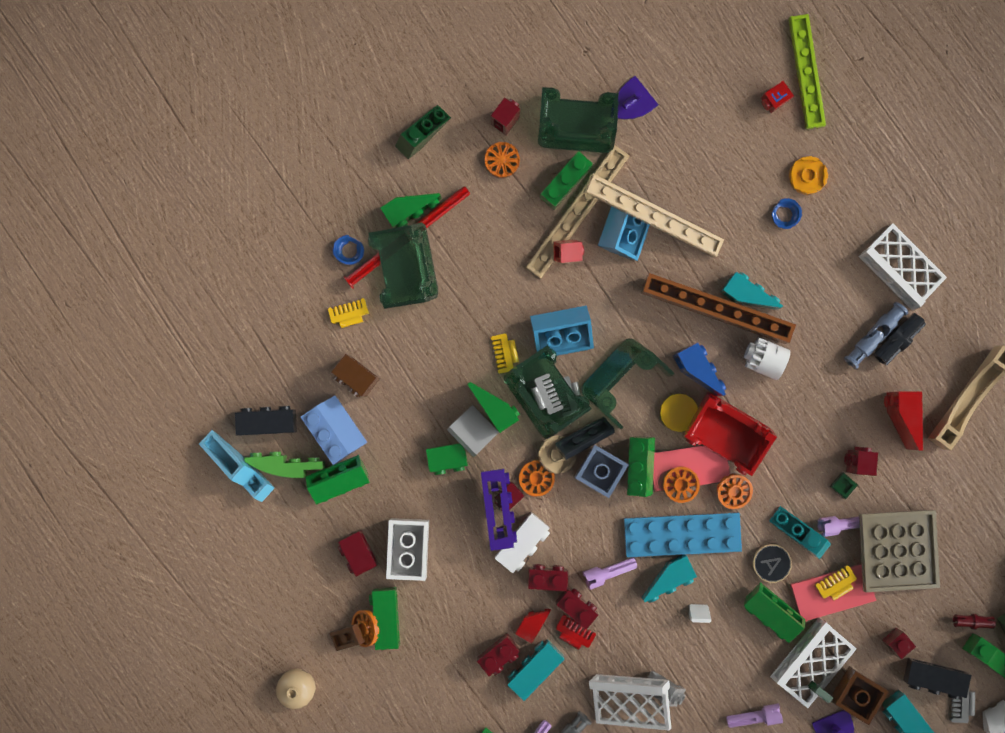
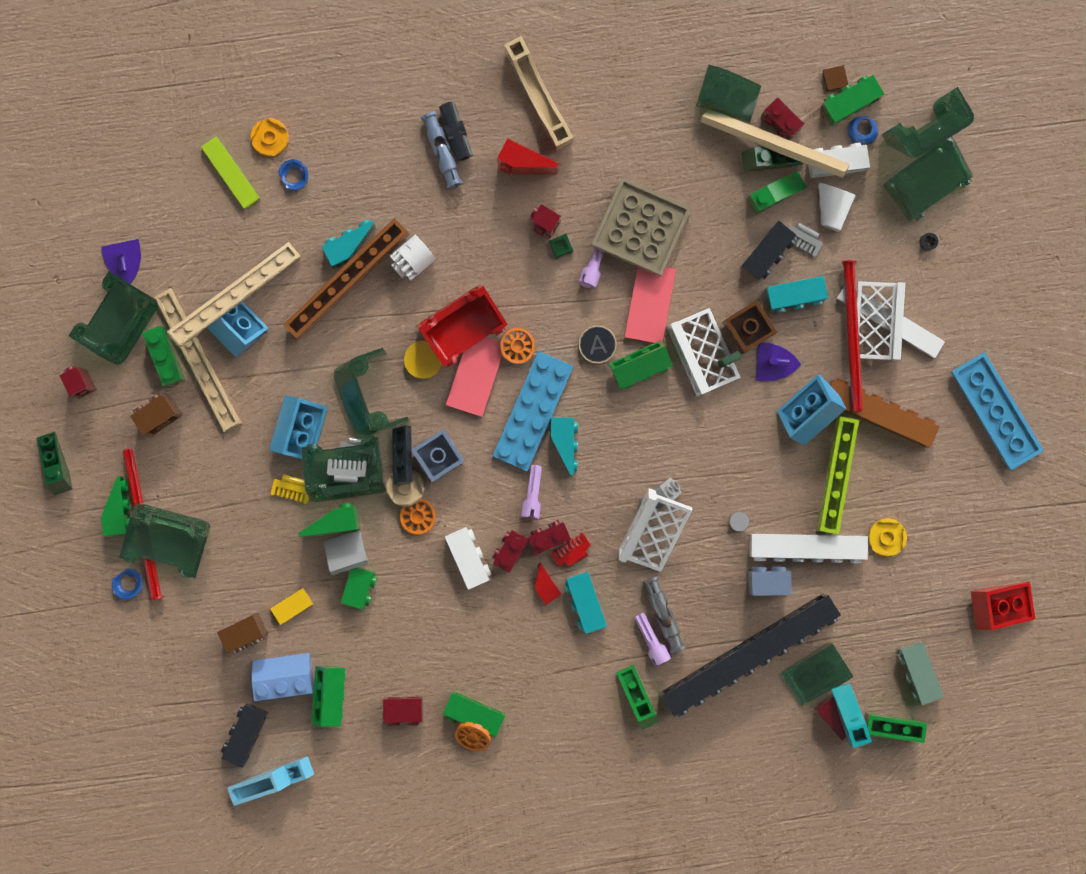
camera: 65 degrees left, 0 degrees up
(277, 464) = (288, 743): bright green slope -> none
(295, 689) = (497, 826): tan cylinder -> none
(346, 637) = (472, 756): reddish brown plate -> none
(351, 317) = (189, 612): yellow piece -> none
(400, 406) = (291, 606): none -> yellow tile
(407, 549) = (421, 663): white brick -> none
(498, 654) = (556, 630): dark red brick -> none
(502, 159) = (116, 404): orange wheel -> none
(503, 541) = (418, 552): dark purple brick -> none
(511, 200) = (155, 415): none -> reddish brown brick
(516, 494) = (421, 550): dark red brick -> none
(568, 251) = (227, 386): brick -> none
(641, 466) = (451, 417): green brick -> none
(681, 484) = (486, 390): orange wheel -> none
(694, 364) = (387, 325): blue slope -> none
(699, 613) = (609, 431): white slope -> none
(759, 156) = (230, 172): none -> lime tile
(769, 714) = (728, 414): lavender piece -> none
(776, 97) = (184, 130): red brick -> none
(800, 532) = (582, 305): teal slope -> none
(807, 71) = (176, 91): lime tile -> none
(839, 587) = (647, 296): yellow piece -> none
(895, 280) = (394, 110): white fence -> none
(899, 643) = (722, 268): dark red brick -> none
(974, 621) = (736, 192): dark red pin -> none

